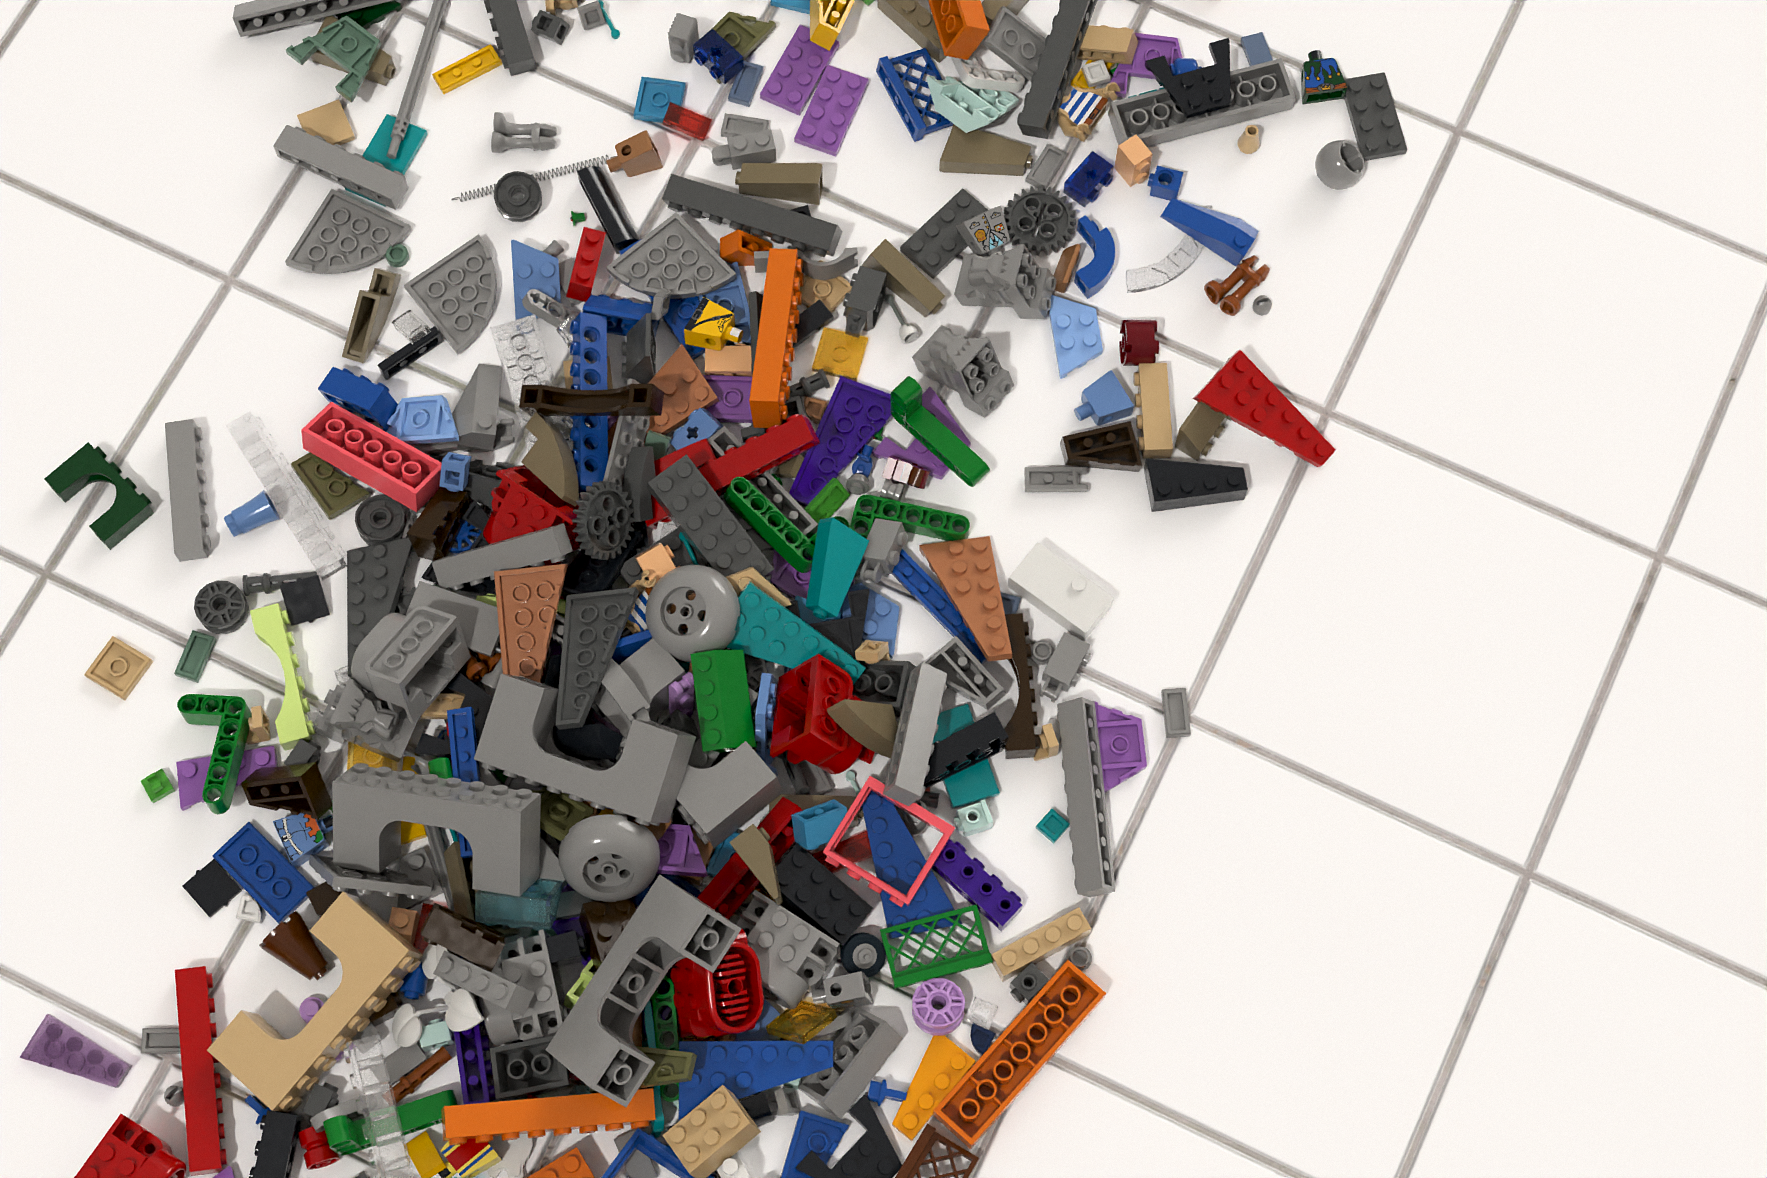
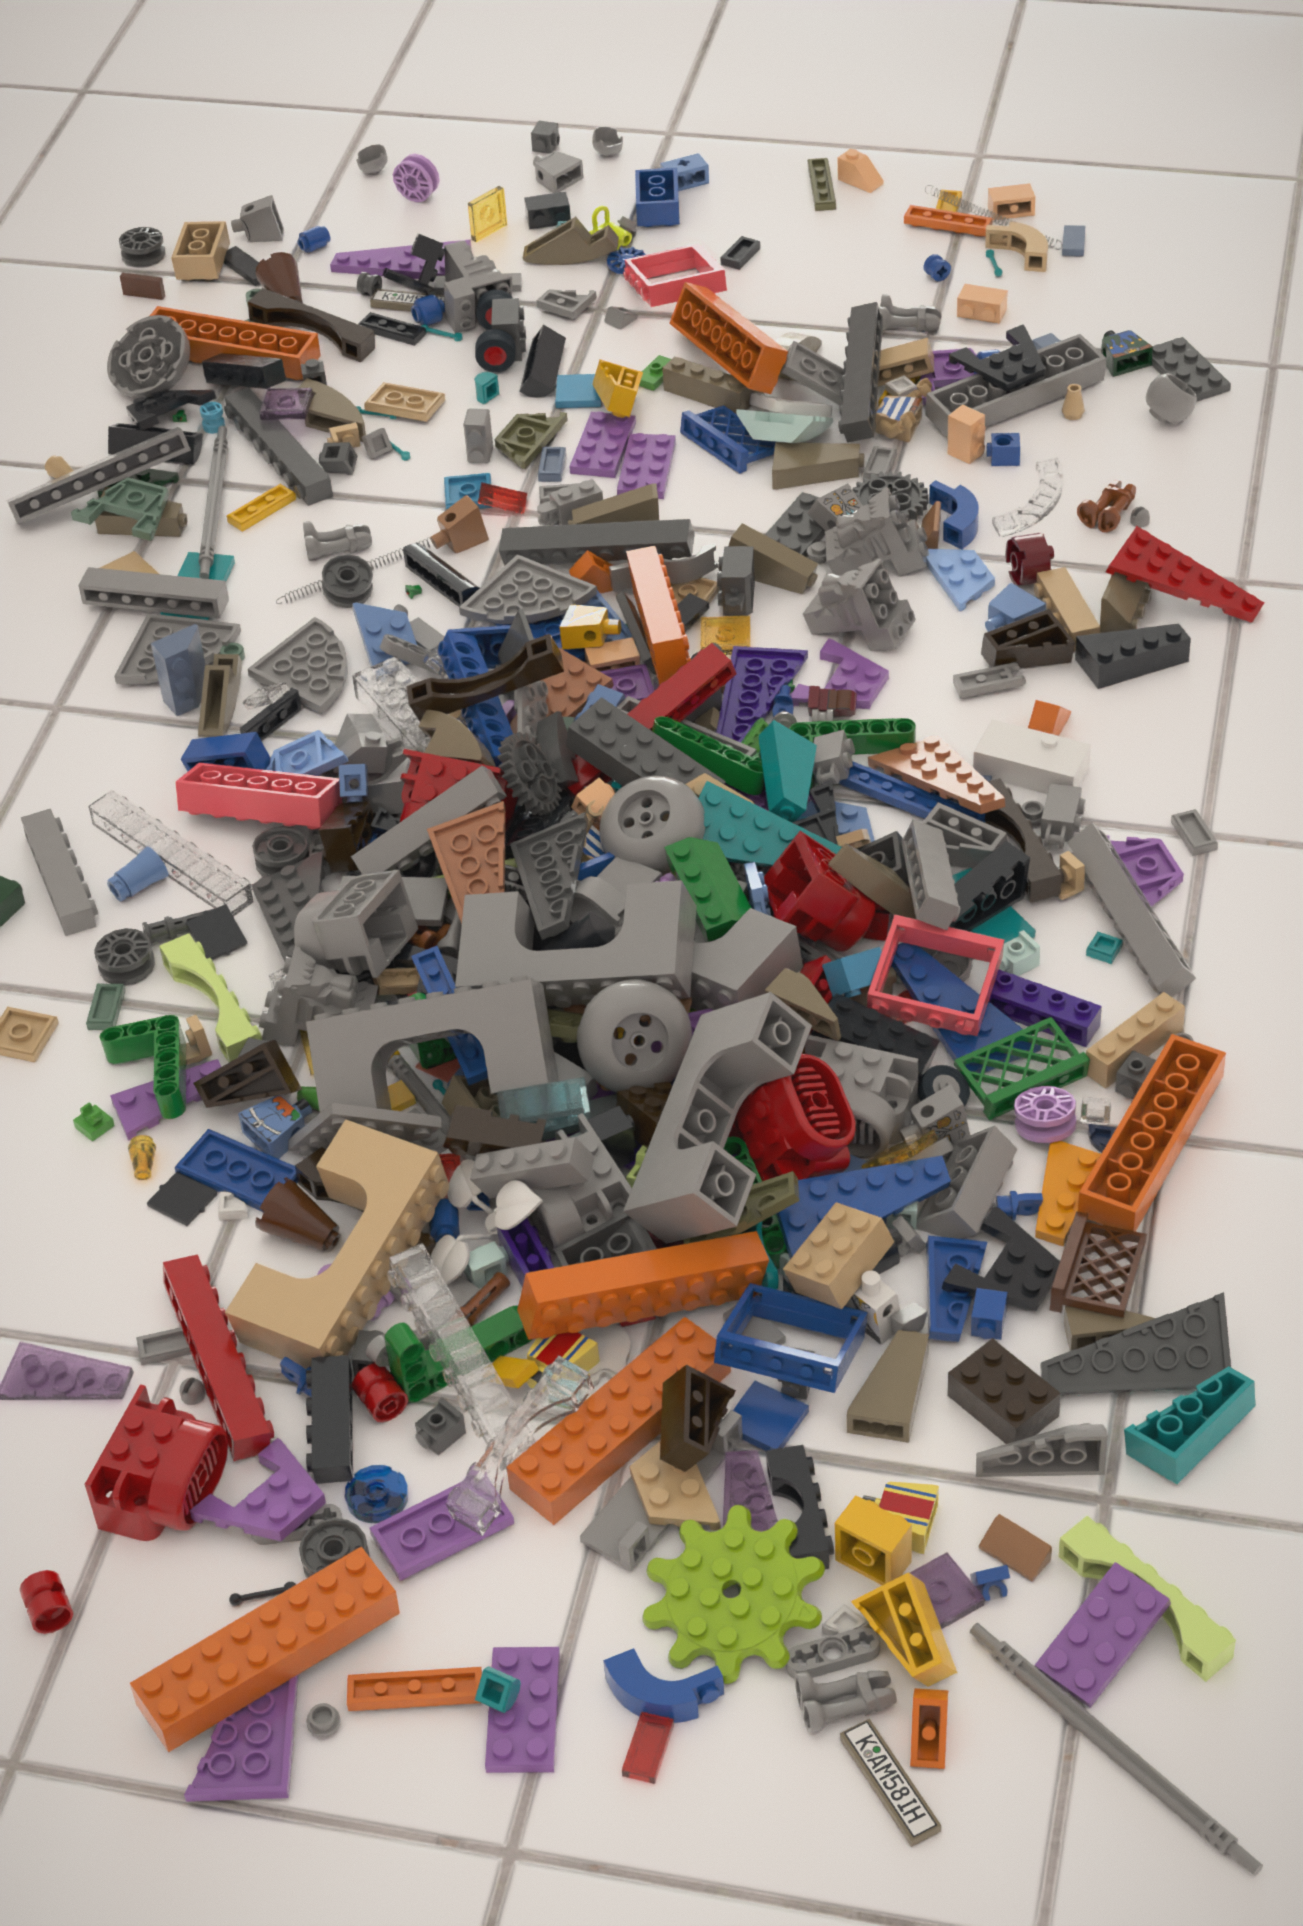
camera: 10 degrees left, 25 degrees down
(187, 838) = (142, 1154): none -> clear yellow cone
(328, 487) = (218, 841): olive wing -> none
(340, 283) = (180, 669): none -> sand blue slope
(585, 264) = (436, 611): red brick -> none
(660, 304) = (528, 607): light grey tile -> none
(718, 56) = (519, 440): clear blue brick -> none
(907, 332) = (789, 604): white hinge -> none
(936, 437) = (845, 662): green beam -> none
(952, 270) = (817, 552): none -> light grey plate
(1089, 179) = (927, 459): clear blue brick -> none
(1092, 545) = (1048, 717): none -> orange slope
(1217, 231) = (1073, 471): blue wedge -> none

